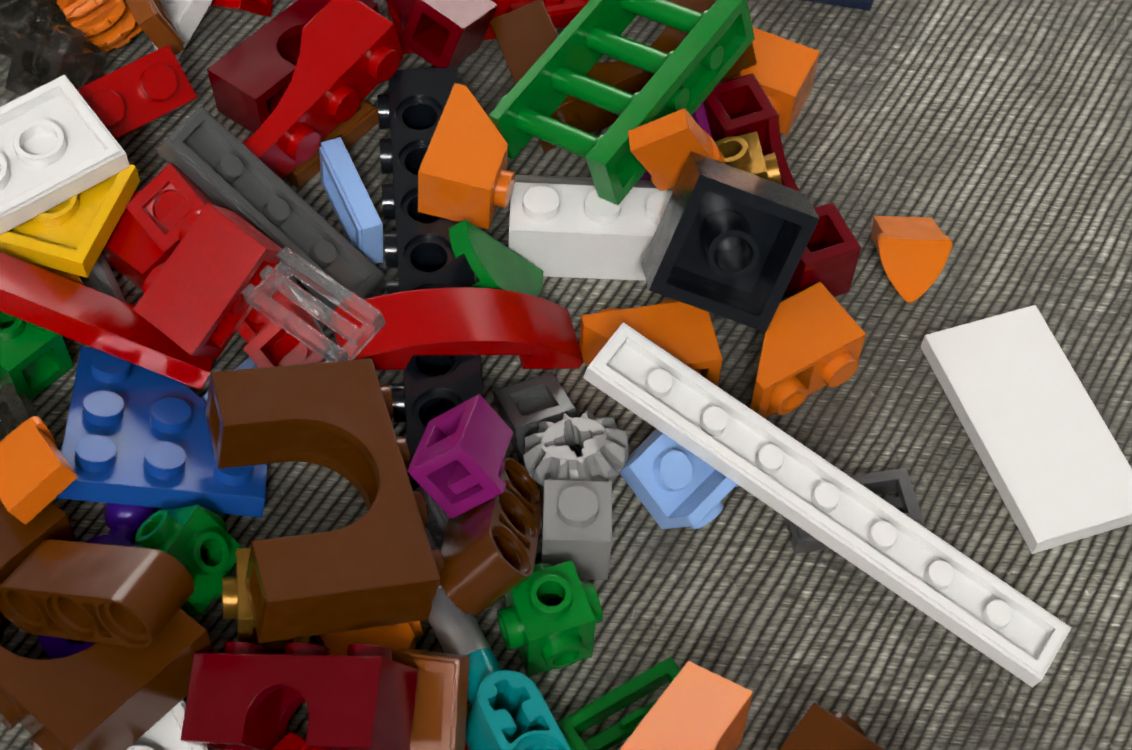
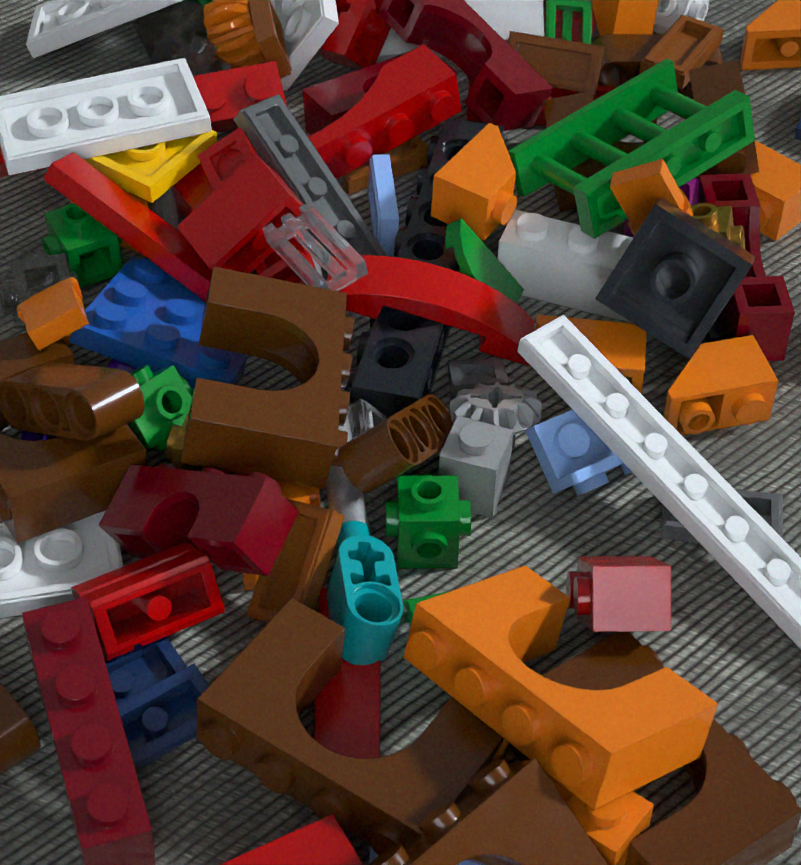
camera: 20 degrees right, 10 degrees down
(462, 456) = (392, 375): magenta brick -> none
(798, 661) = (621, 593): none -> brick

